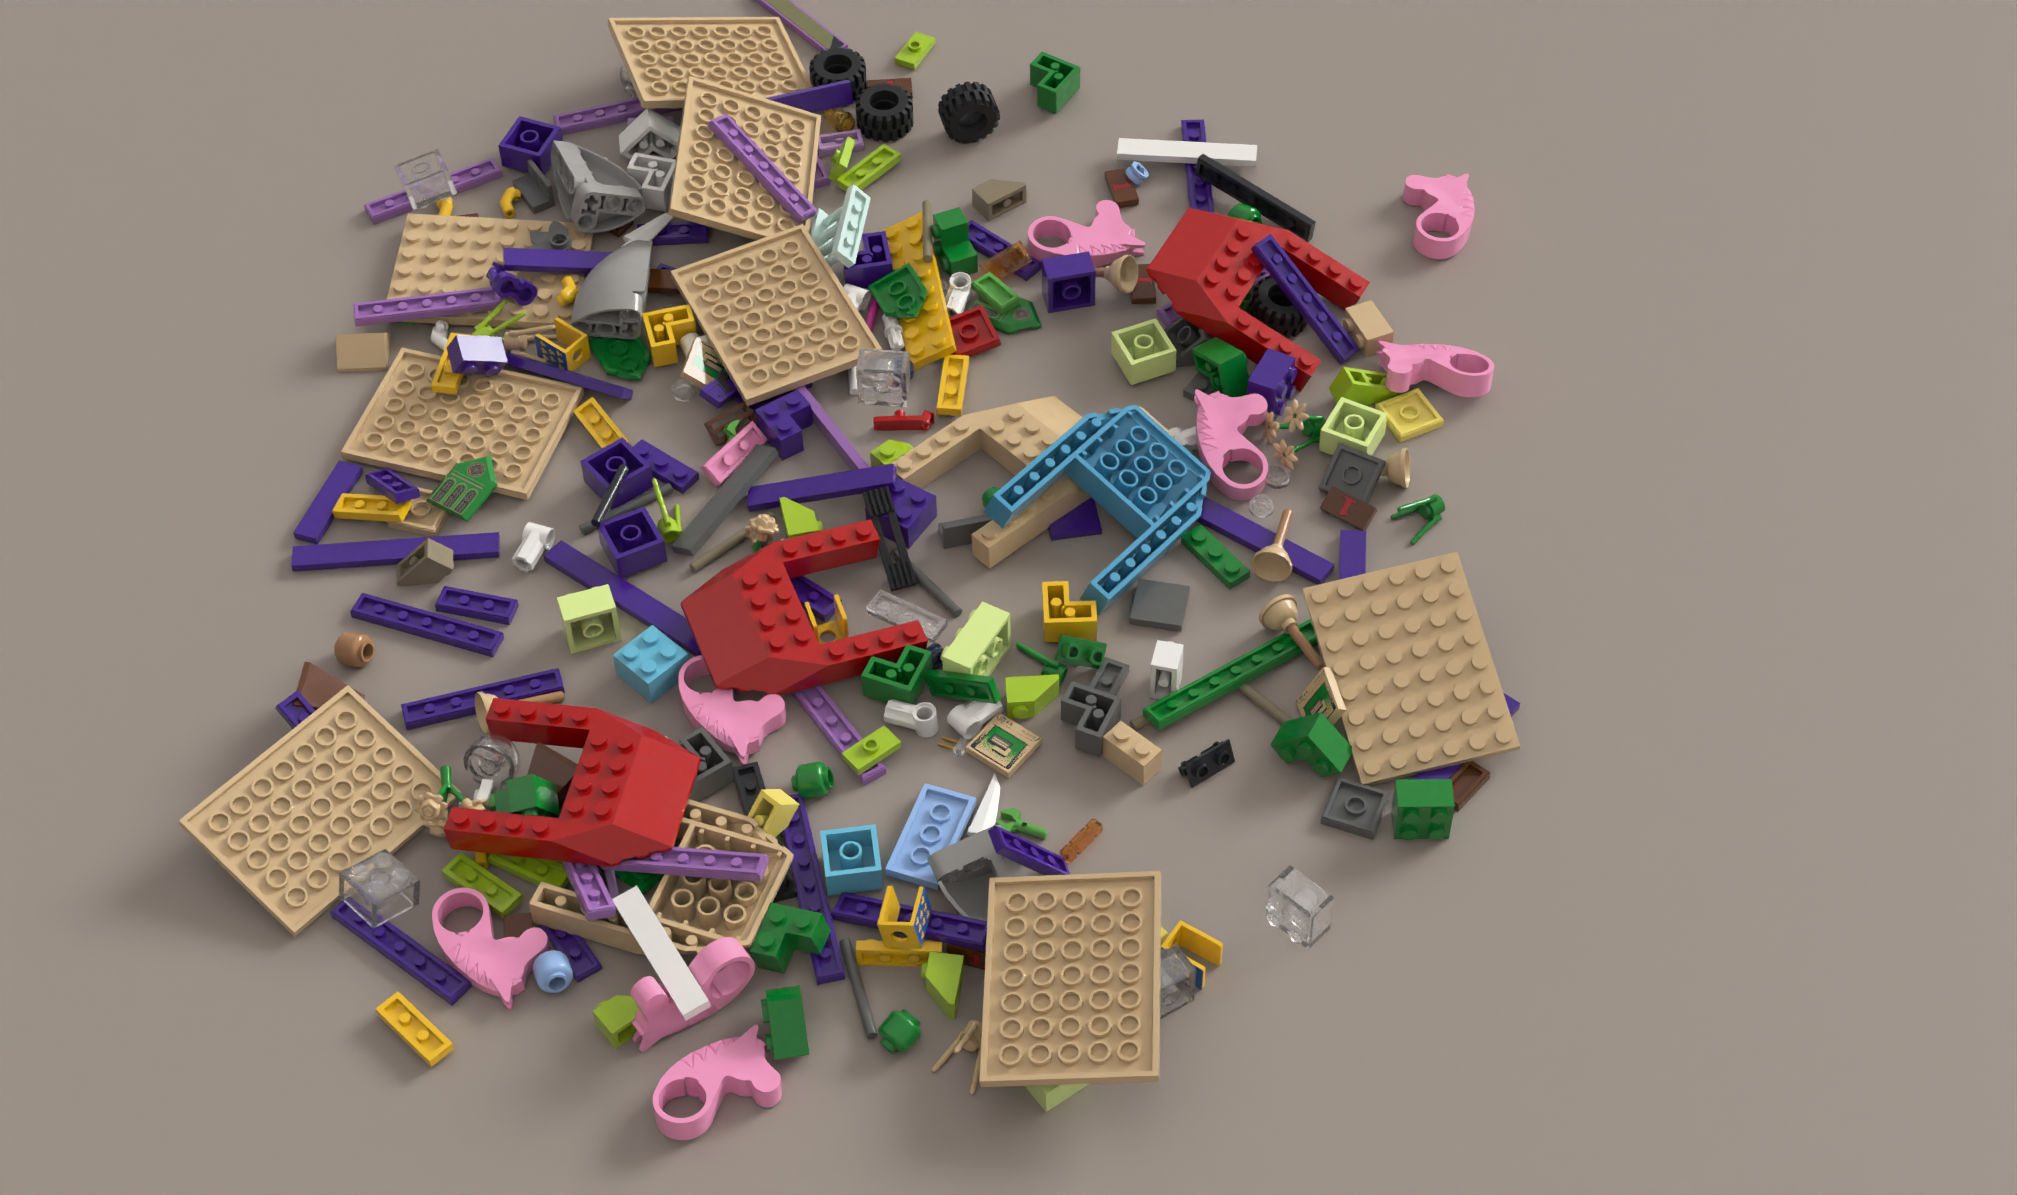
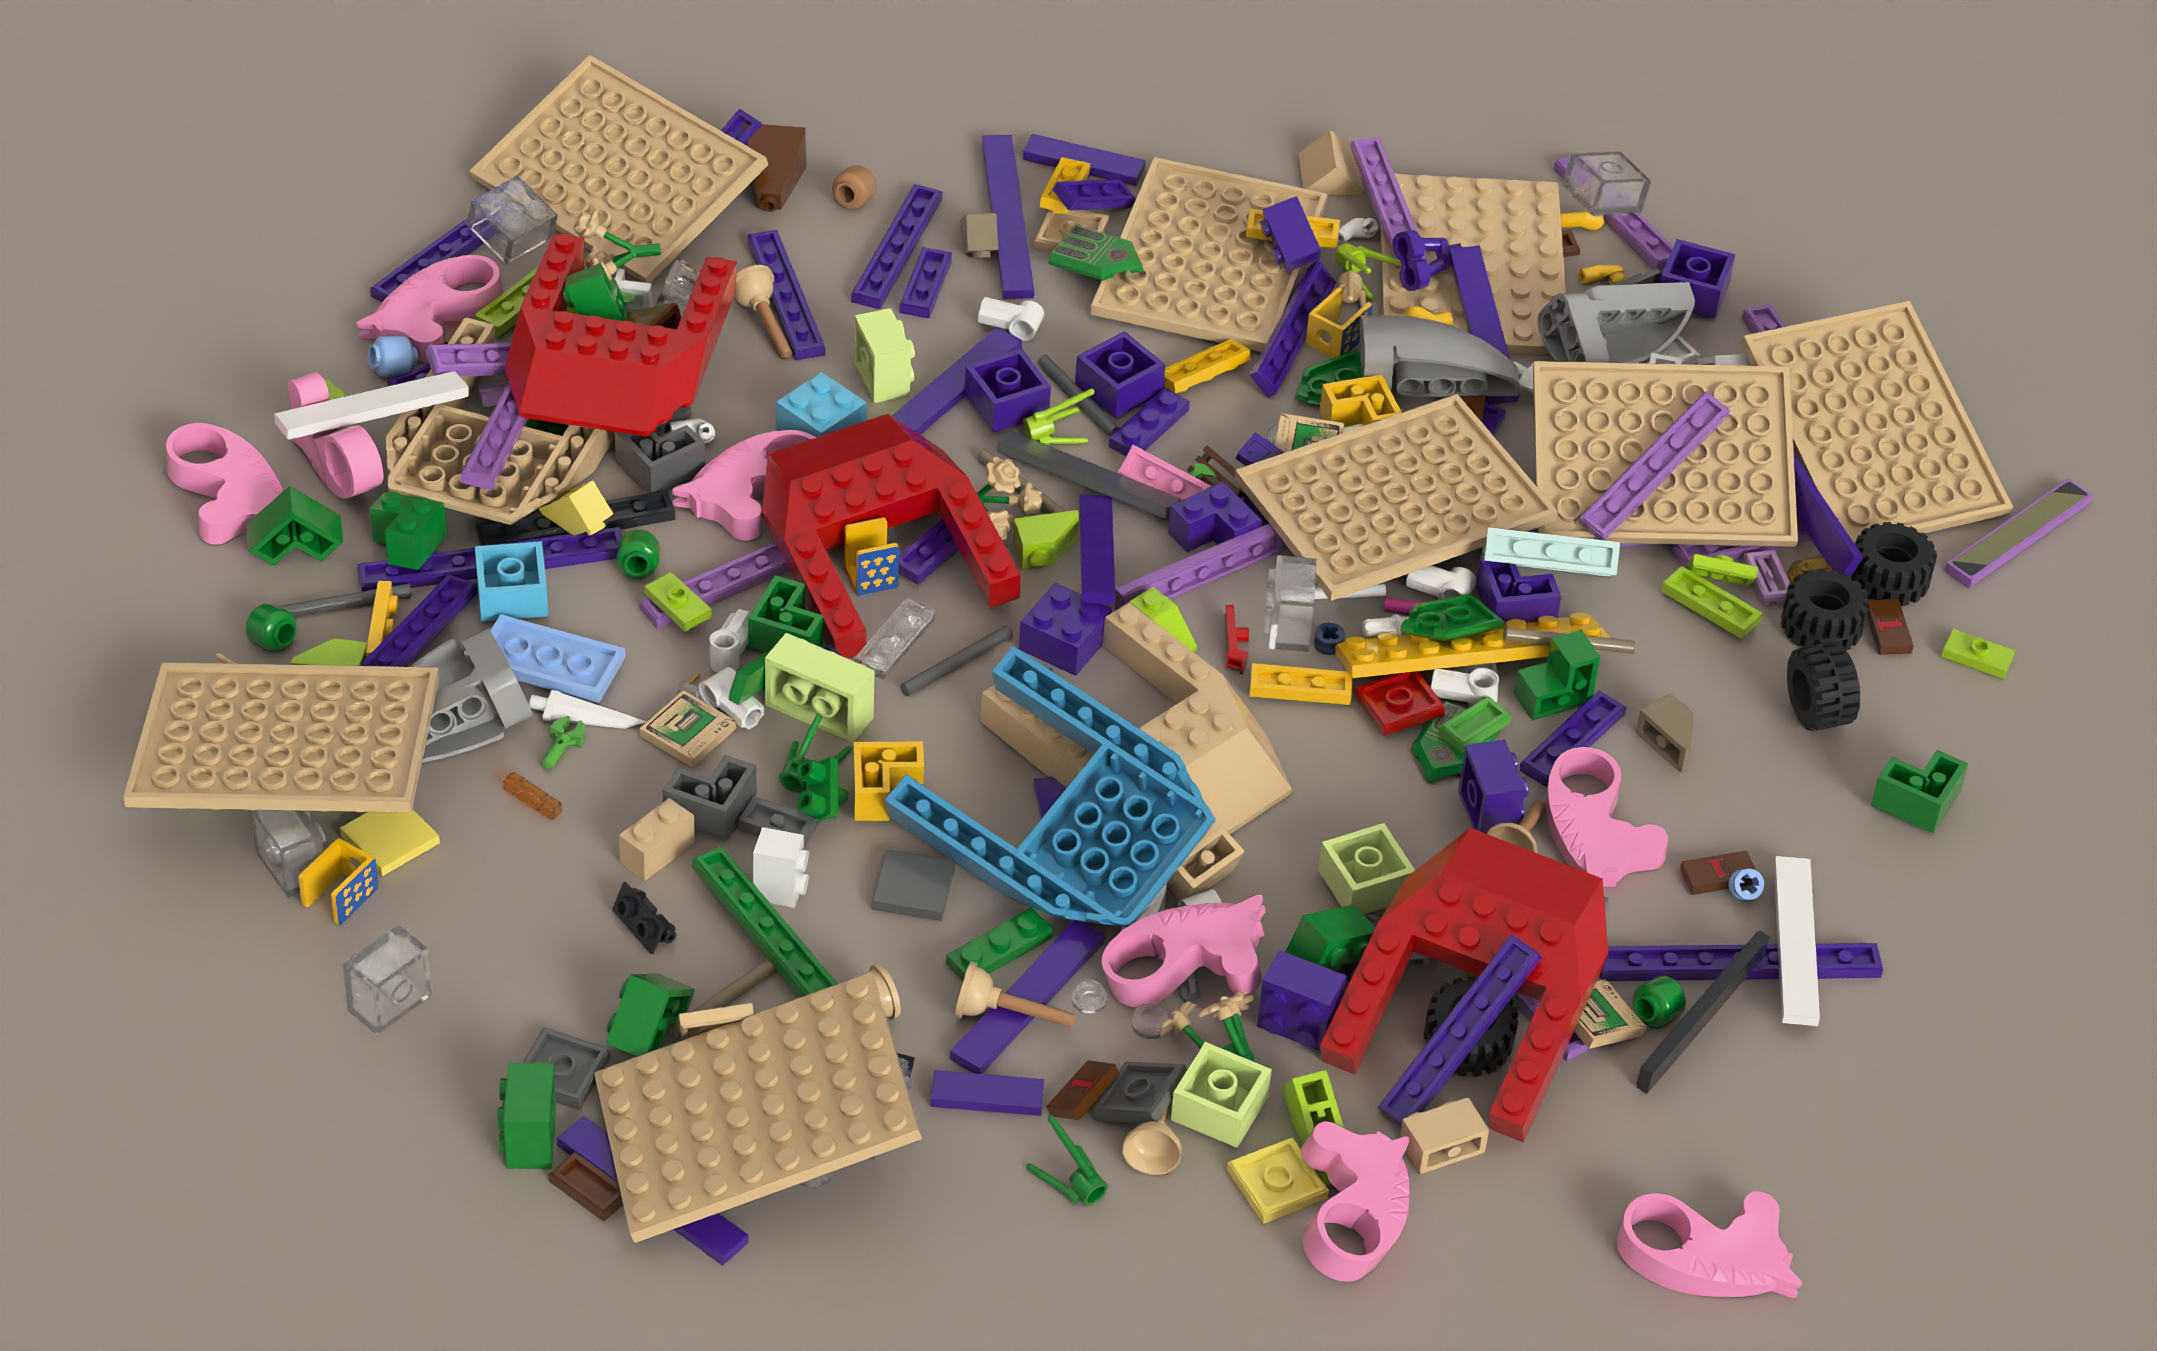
camera: 85 degrees right, 5 degrees down
(414, 1029) = (336, 263): yellow plate -> none
(555, 239) = (1518, 301): dark grey plate -> none
(609, 495) = (1063, 352): black bar -> none
(901, 573) = (1045, 581): black container -> none
(914, 929) = (400, 603): yellow piece -> none
(1006, 261) = (1537, 736): clear orange slope -> none
(1027, 853) = (478, 714): dark purple tile -> none
(1030, 694) = (757, 744): lime slope -> none

